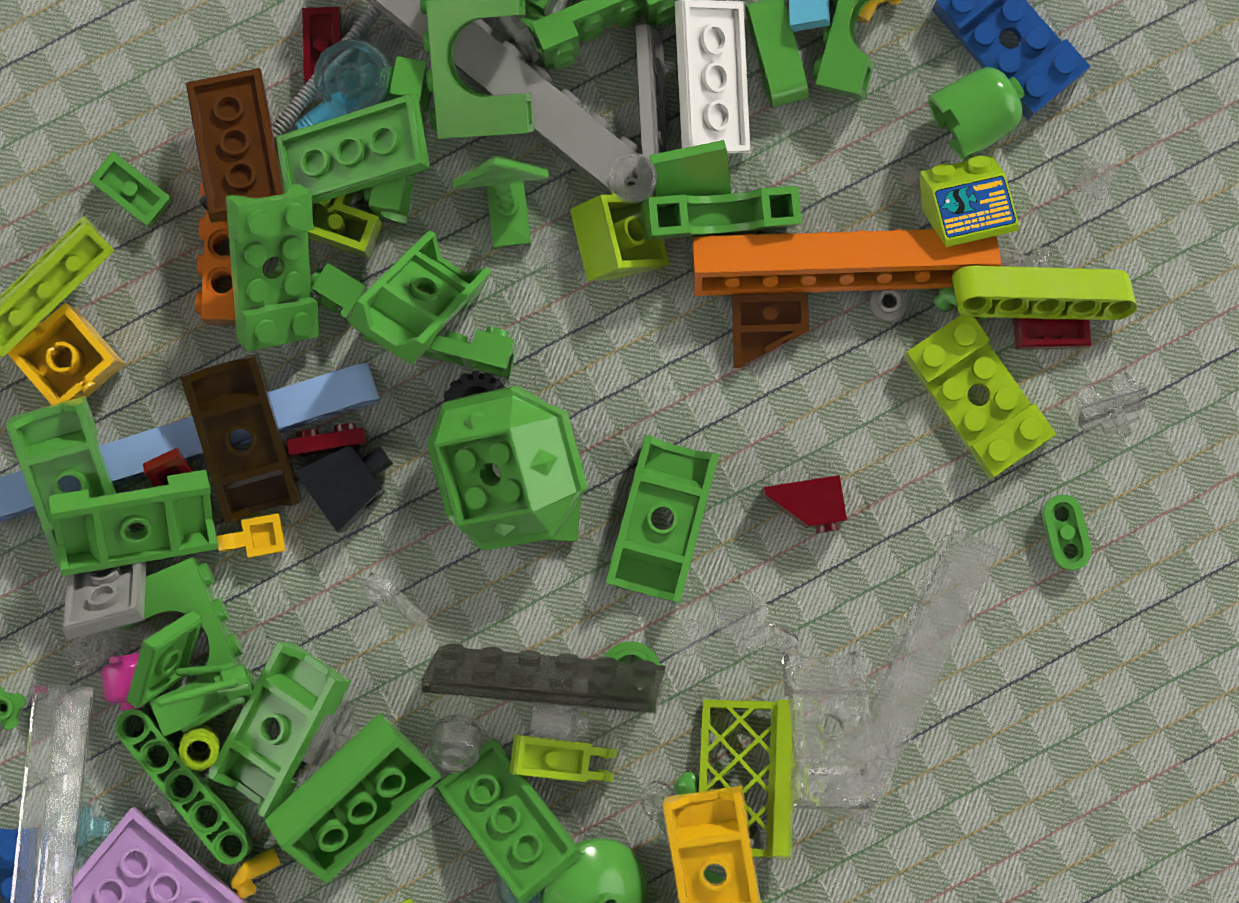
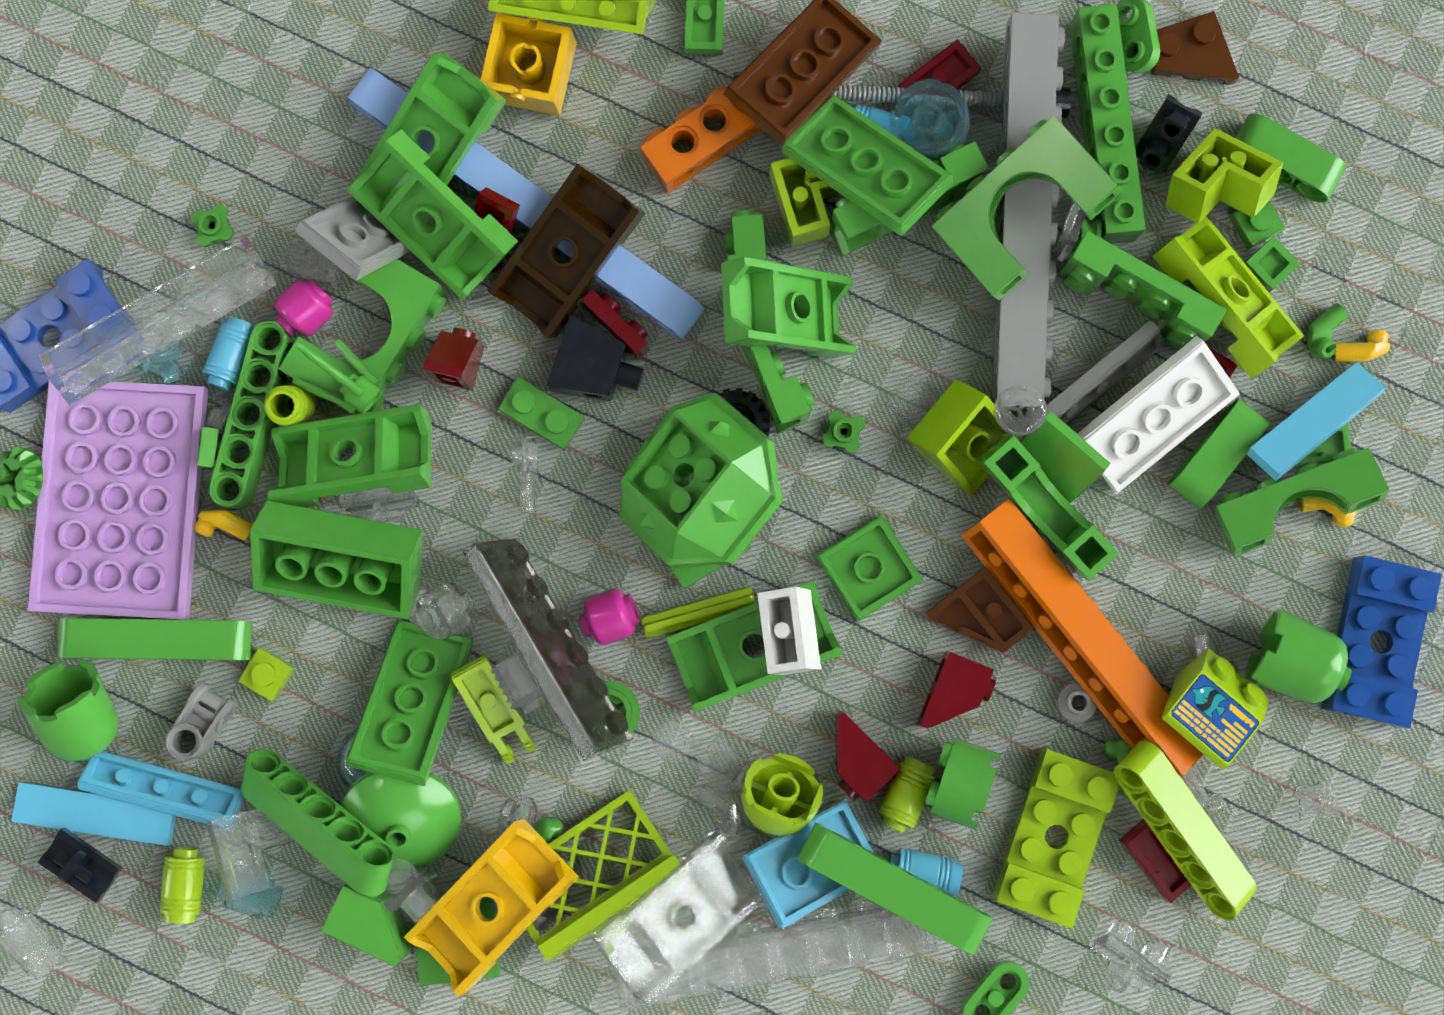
camera: 55 degrees right, 0 degrees up
(120, 768) = (228, 353): none -> medium azure head
(161, 657) = (339, 319): bright green plate -> none
(186, 838) = (208, 448): none -> bright green plate
(259, 536) = (497, 325): yellow plate -> none
(260, 589) = (455, 359): none -> dark red slope
(279, 304) = (698, 200): bright green piece -> none
(354, 553) = (541, 413): none -> bright green plate
(505, 197) = (927, 318): bright green piece -> none
(546, 315) = (835, 438): none -> bright green plate
(556, 616) = (609, 616): none -> dark pink head
(602, 545) = (696, 612): none -> lime axle
(667, 385) = (869, 568): none -> bright green tile
(671, 481) = (789, 631): none -> white brick
(793, 582) = (781, 794): none -> lime cylinder
(810, 388) = (956, 689): none -> dark red slope
(863, 485) = (906, 794): none -> lime head
(863, 598) = (787, 884): none -> medium azure tile
(885, 434) = (963, 784): none -> bright green brick
(927, 546) = (894, 889): none -> bright green beam
(933, 516) = (935, 869): none -> medium azure head

